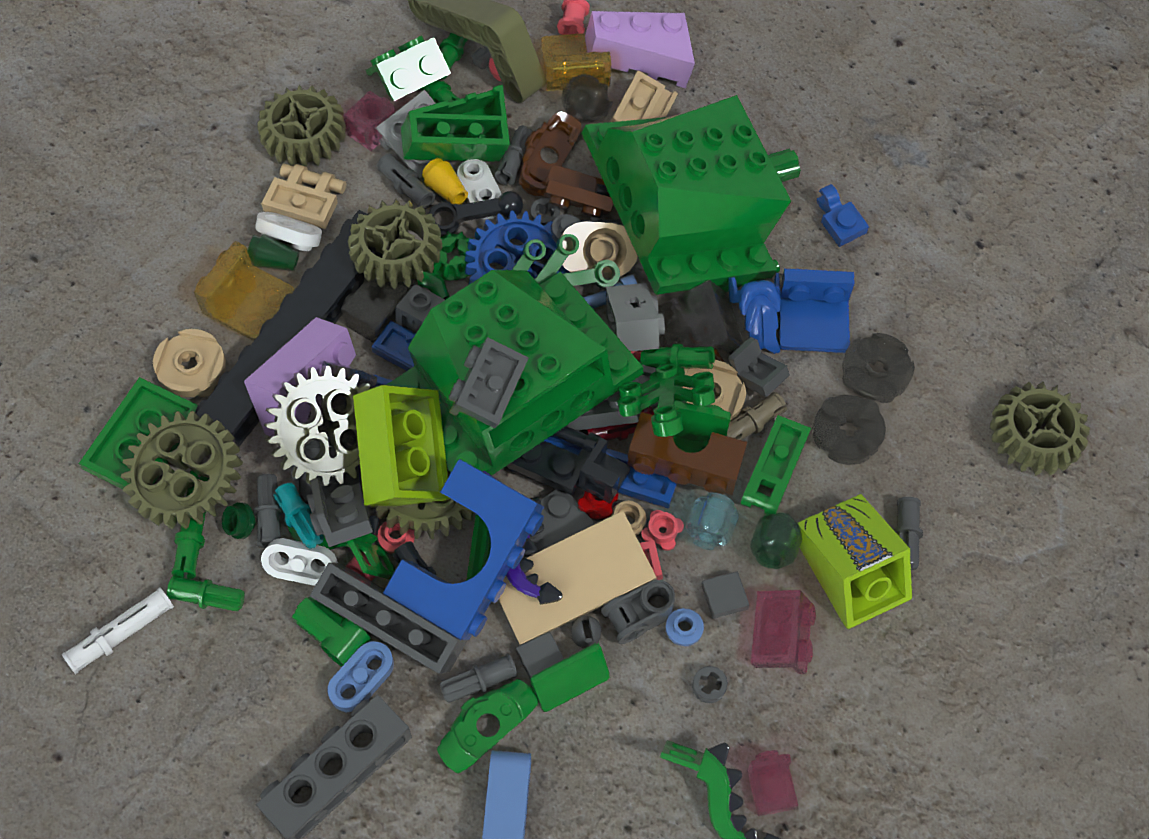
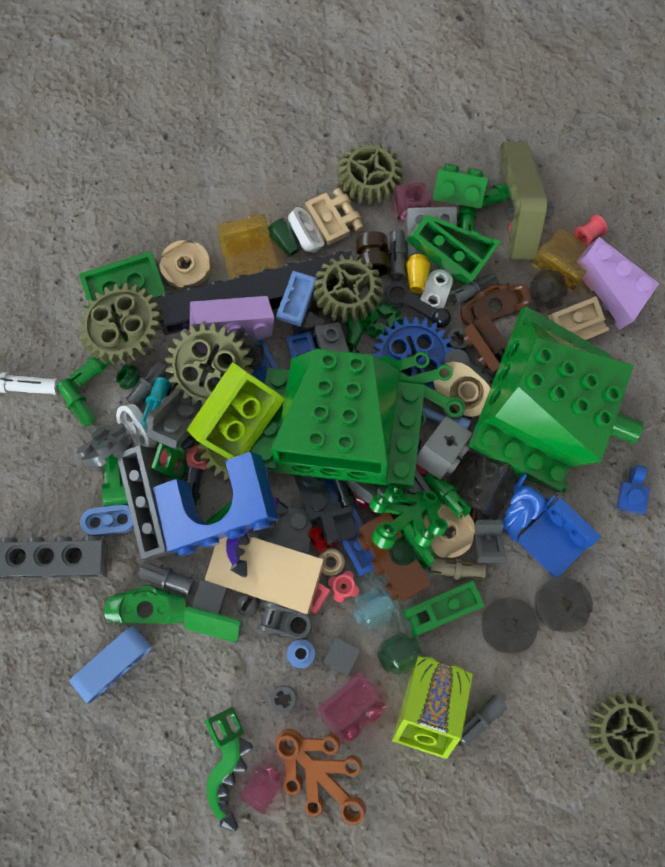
camera: 40 degrees right, 10 degrees up
(284, 602) = (104, 444): none -> dark grey plate
(351, 294) = (296, 299): none -> medium blue plate
(378, 186) = (374, 249): none -> dark brown wheel
(488, 383) = (298, 424): dark grey bracket -> none
(809, 713) = (317, 771): none -> dark orange plant

